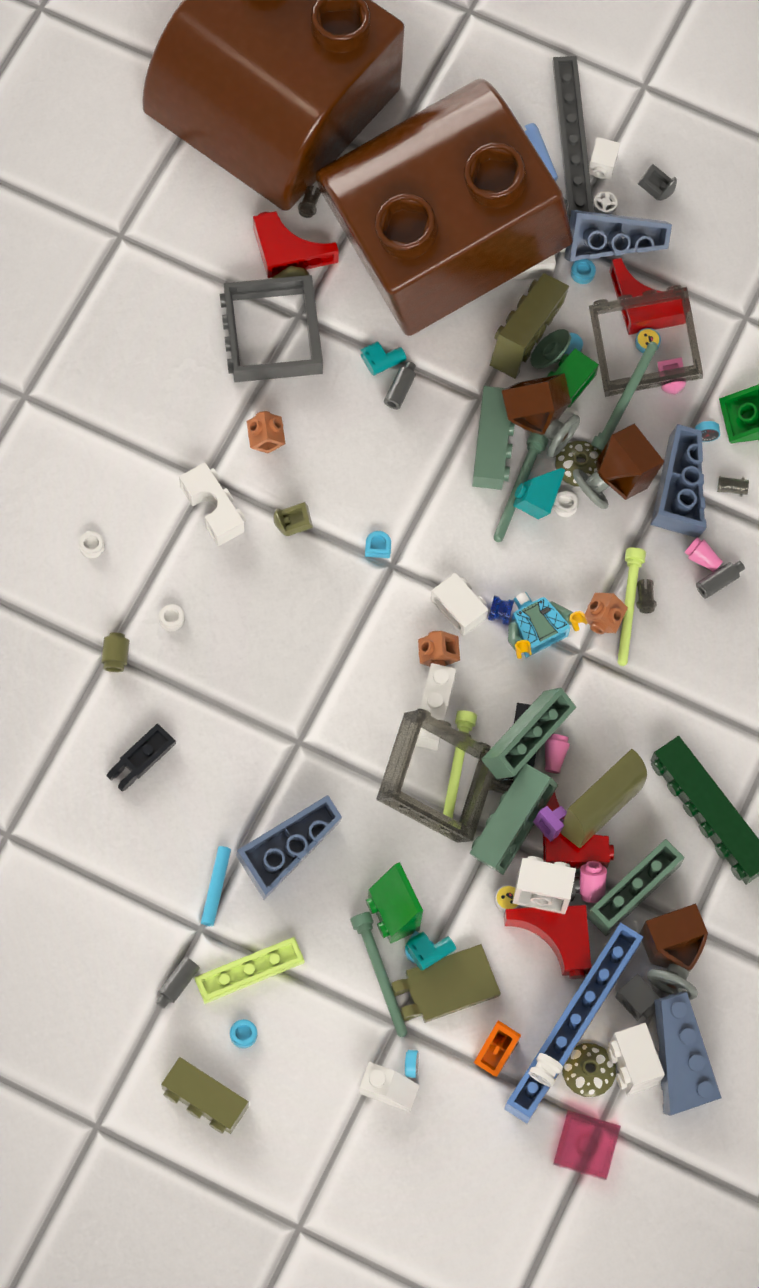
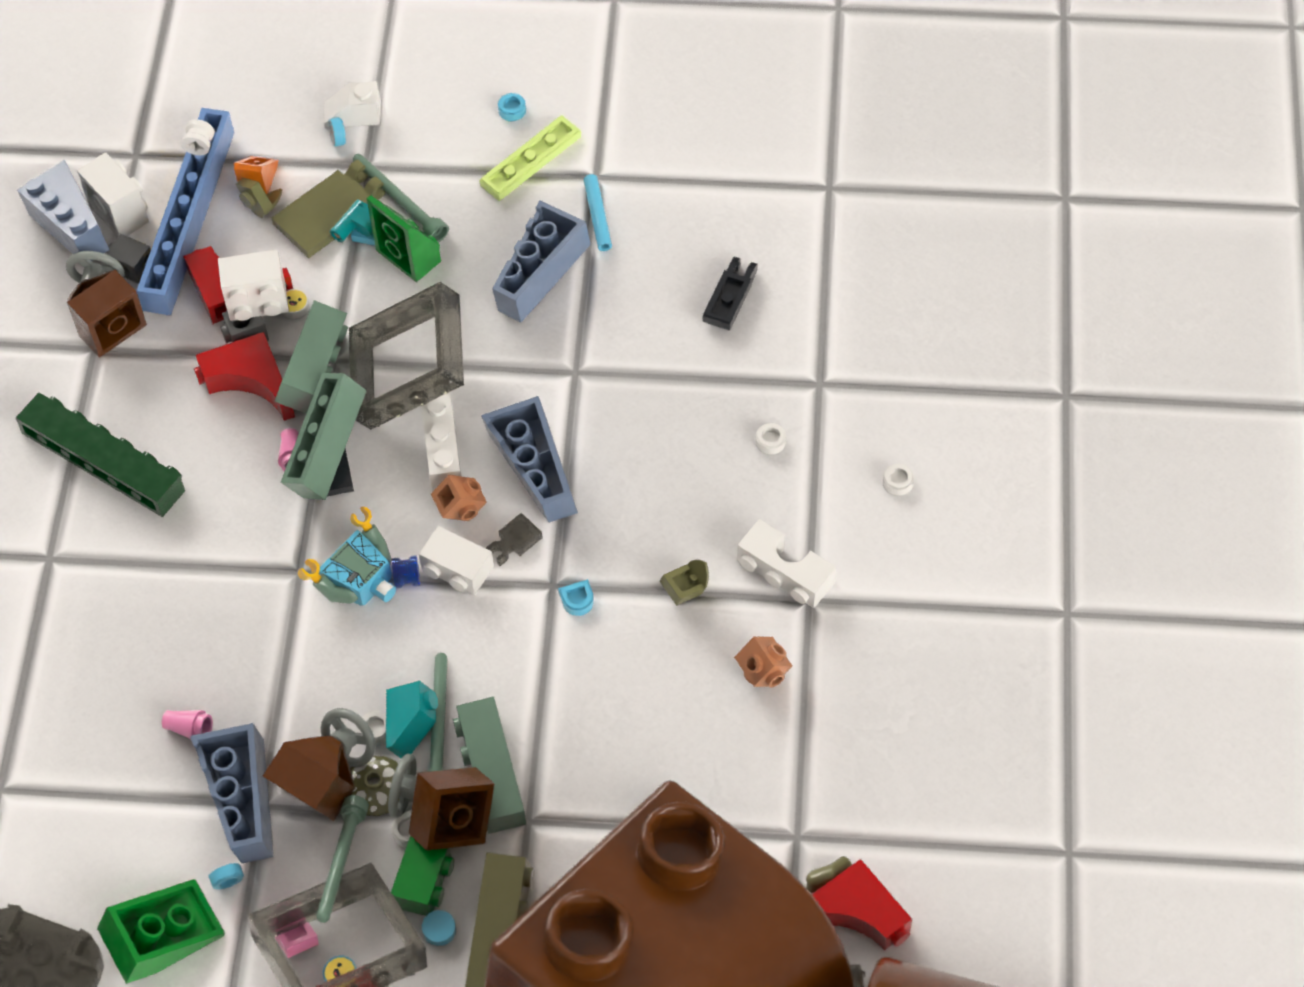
camera: 165 degrees right, 10 degrees down
(115, 652) = (811, 376): olive brick -> none
(177, 982) = (594, 122): dark grey cylinder -> none
(204, 1096) = (523, 43): olive brick -> none
(264, 289) = (858, 759): dark grey window -> none
(366, 667) = (530, 450): none -> sand blue wedge
(400, 386) = (629, 785): dark grey cylinder -> none
(403, 612) = (516, 536): none -> clear smoke plate
(465, 721) = (402, 446): yellowish green piece -> none
(506, 1013) = (255, 198): none -> olive plate
(550, 349) = (457, 898): sand green dish -> none
(550, 821) = (268, 357): medium lavender tile -> none
(581, 1080) = (154, 197): olive dish -> none
(586, 1145) = (143, 131): clear pink tile -> none
(592, 881) = (204, 328): bright pink brick -> none
(604, 799) = (220, 403): olive brick -> none
(605, 613) = (283, 607): nougat brick -> none
(635, 558) = (269, 689): yellowish green piece -> none
(635, 887) = (160, 346): sand green brick -> none
(646, 597) = (240, 645): clear smoke pin -> none
(719, 579) = (162, 700): dark grey cylinder -> none
(733, 485) = (174, 822): clear smoke pin -> none

